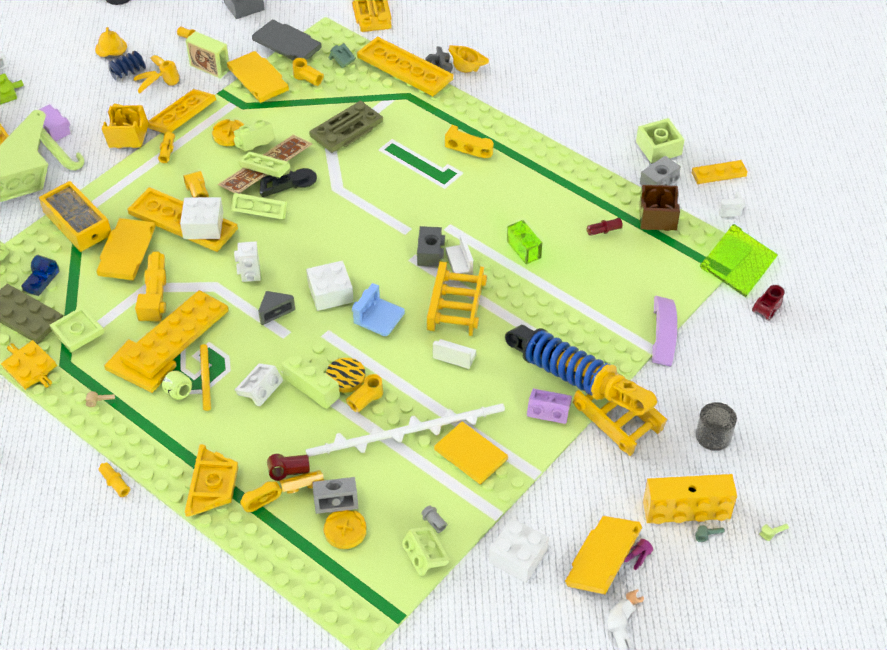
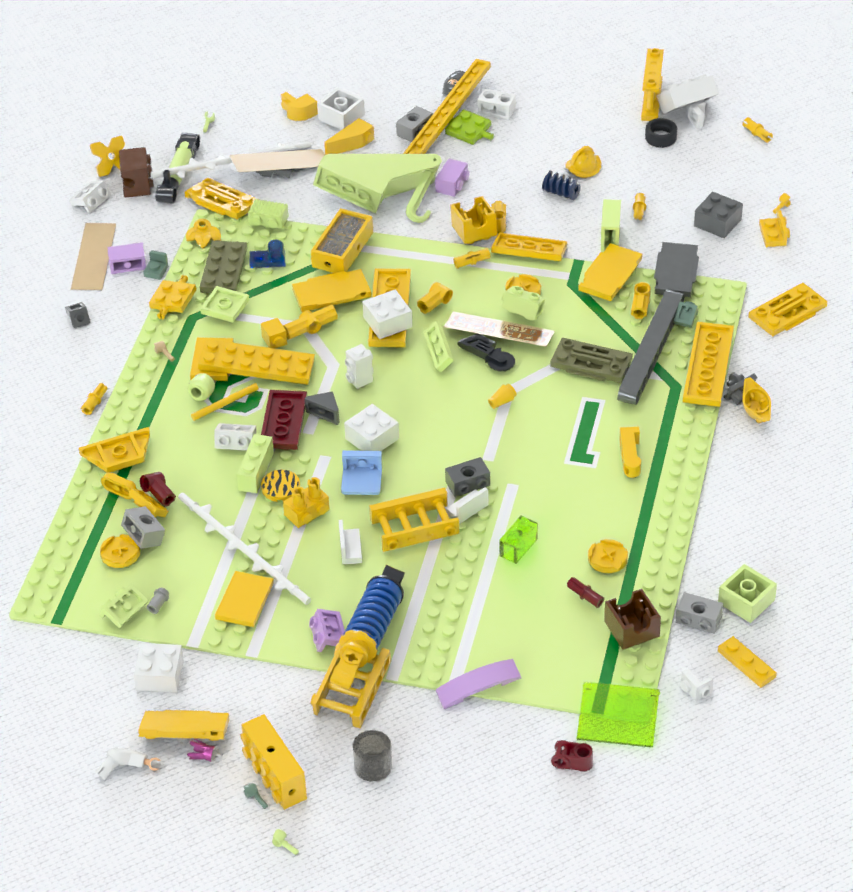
camera: 65 degrees right, 5 degrees down
(167, 70) = (570, 210): yellow plant -> none
(264, 164) = (489, 325): yellowish green plate -> none
(264, 340) = (284, 418): none -> dark red plate
(349, 190) = (502, 396): none -> yellow cone
(363, 87) = (650, 348): none -> dark grey beam
(366, 393) = (269, 504): yellow piece -> none
(389, 362) = (306, 503): none -> yellow brick
(570, 201) = (607, 556): none -> yellow tile

